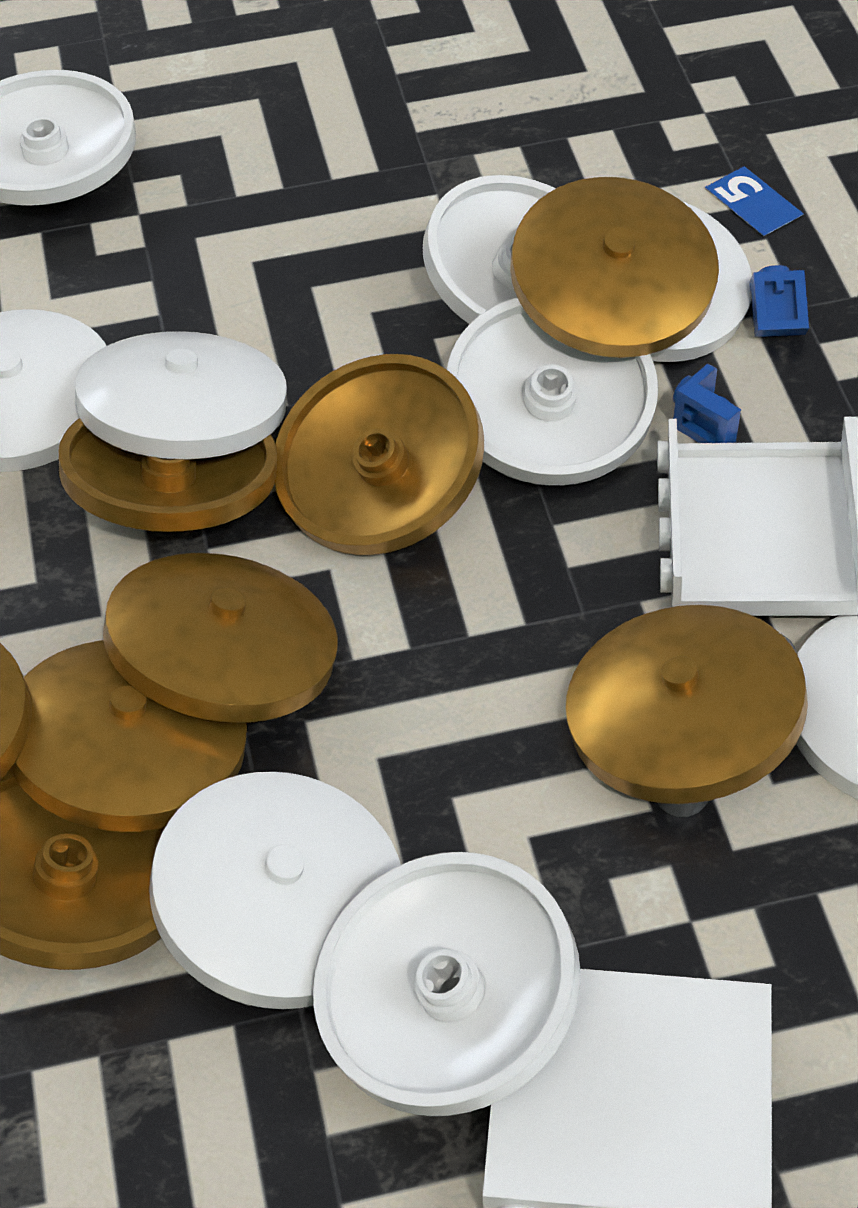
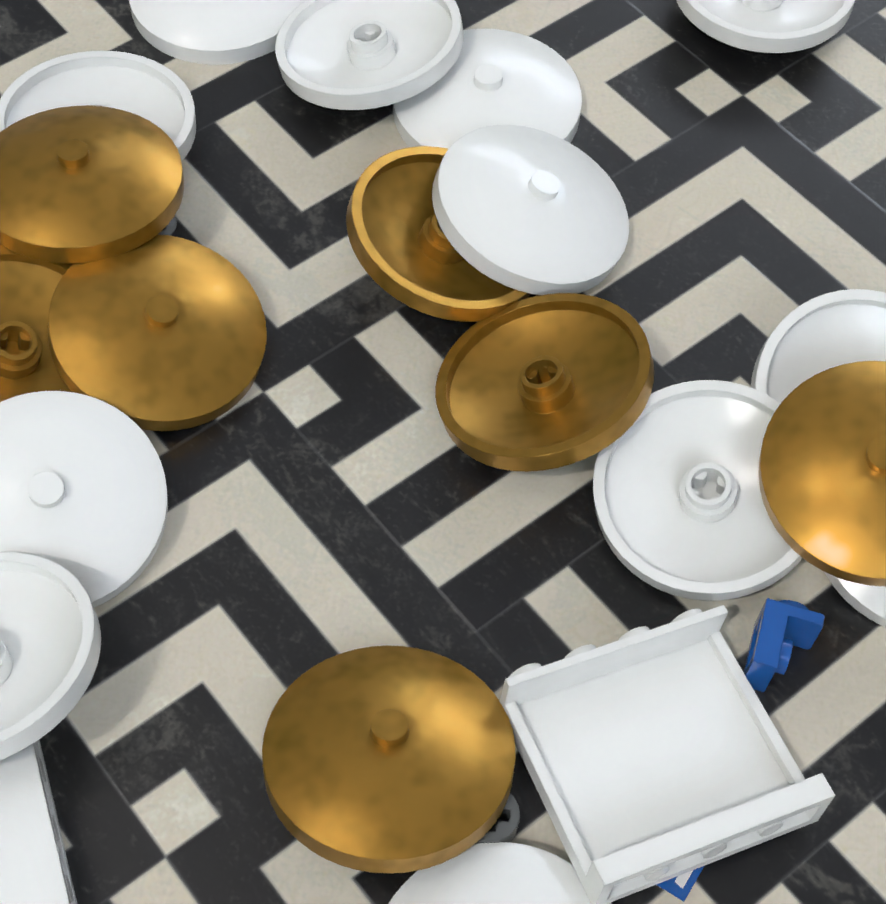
camera: 60 degrees right, 5 degrees up
(219, 637) = (277, 351): pearl gold dish -> none

